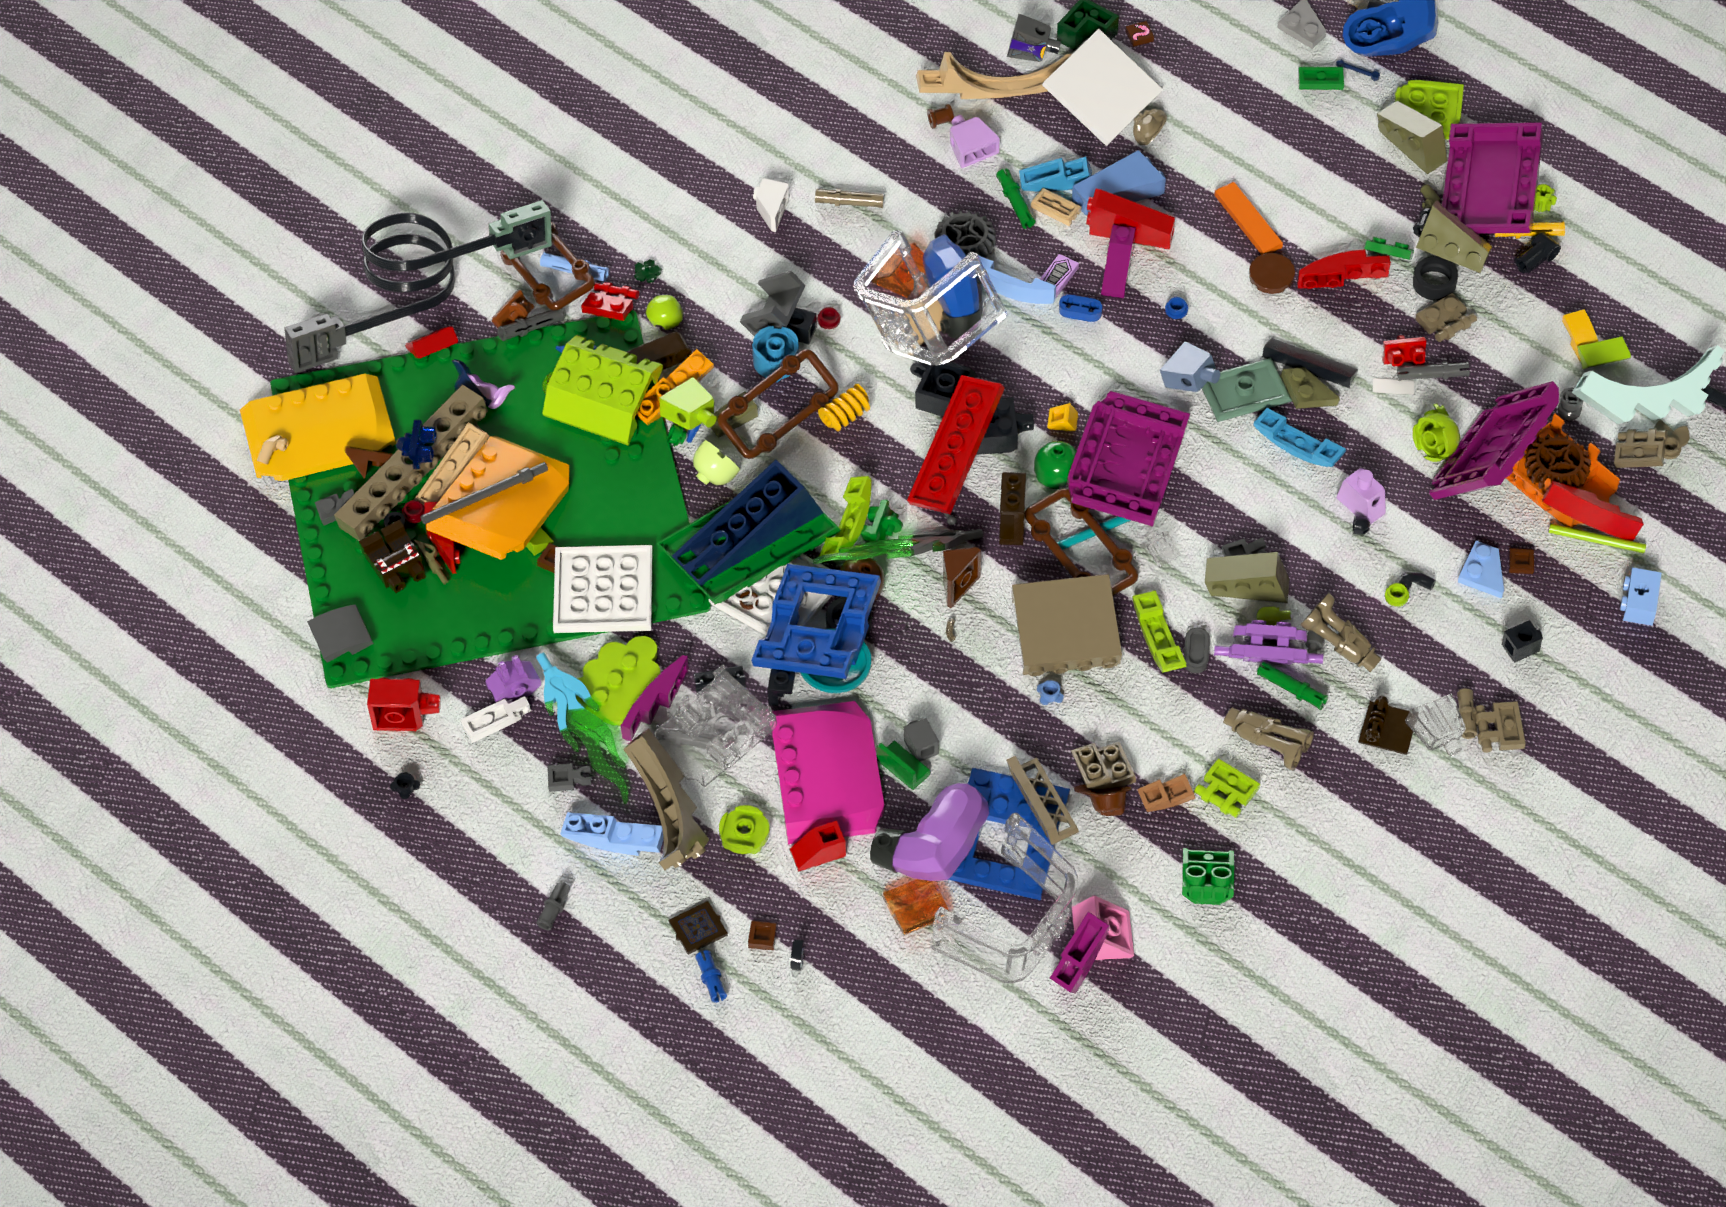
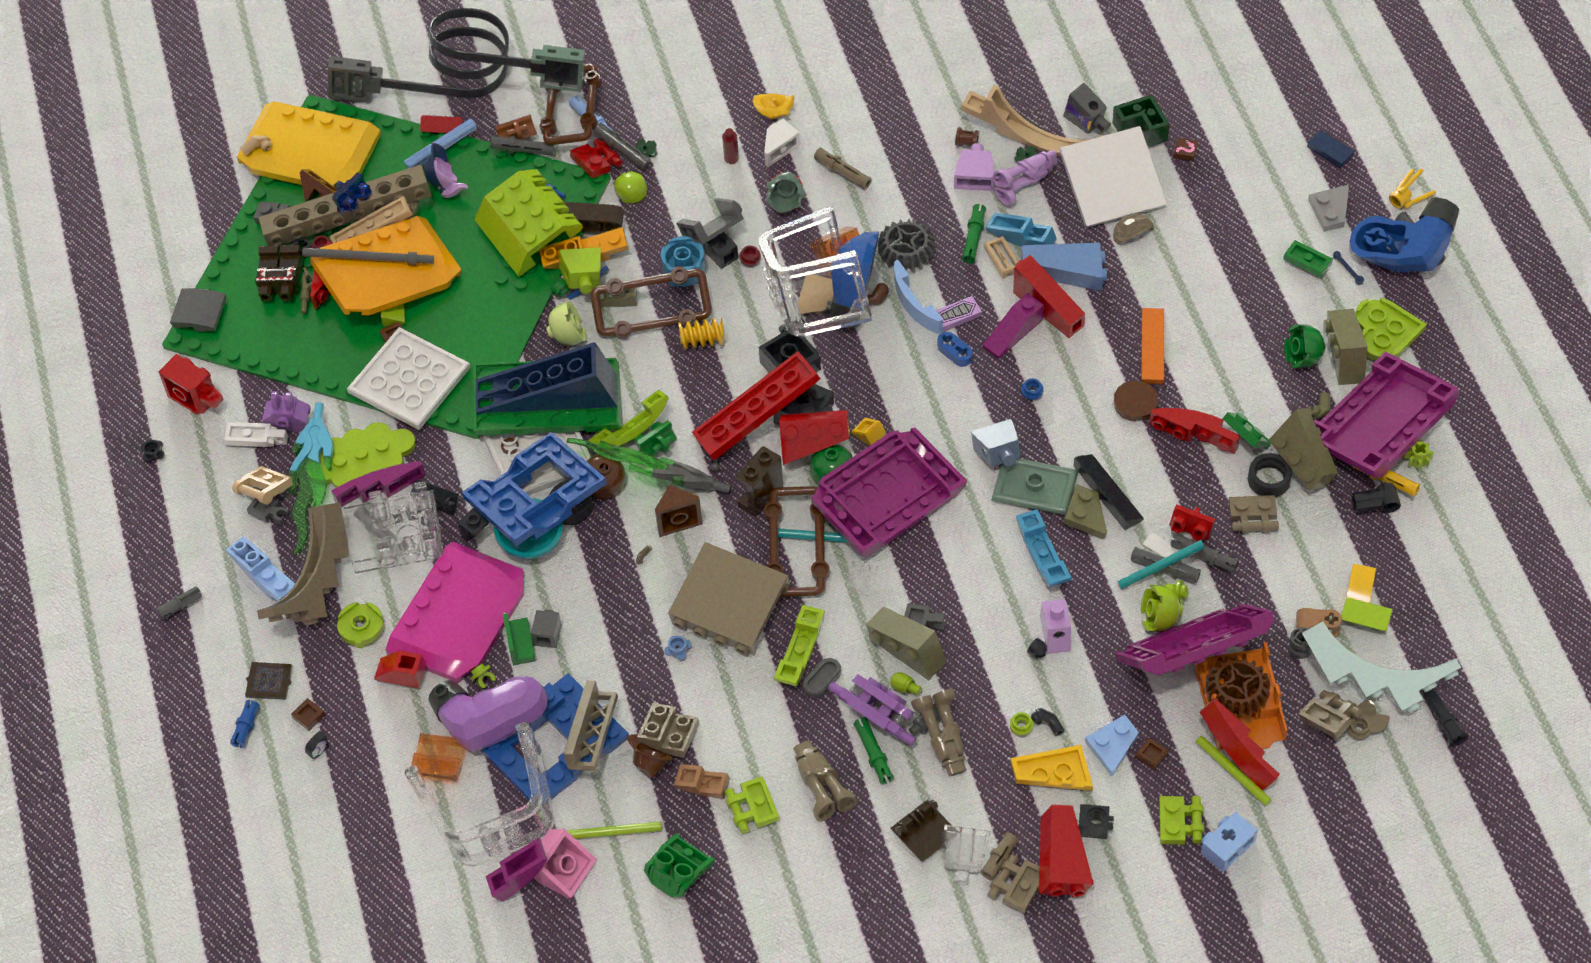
camera: 35 degrees right, 0 degrees up
(447, 367) = (445, 141): none -> light blue axle
(543, 751) = (265, 479): none -> tan plate
(629, 277) = (616, 141): none -> dark grey pin
(733, 227) = (730, 146): none -> dark red cylinder
(739, 171) = (773, 105): none -> yellow hat
(819, 244) = (785, 192): none -> sand green hair
(893, 812) = (480, 672): none -> lime plate
(1004, 108) = (1024, 154): none -> dark green plant
(1020, 122) = (1033, 170): none -> lavender piece
(1027, 440) = (811, 432): none -> red wedge
(1129, 873) = (615, 830): none -> lime piece
(1379, 154) = (1304, 346): none -> green cylinder
(1408, 399) = (1161, 564): none -> teal bar
(1437, 394) = (1191, 573): none -> dark grey pin
(1454, 616) = (1054, 768): none -> yellow wing
(1520, 680) = (1062, 854): none -> red slope
(1570, 375) = (1310, 617): none -> medium nougat piece
(1581, 605) = (1172, 820): none -> lime plate

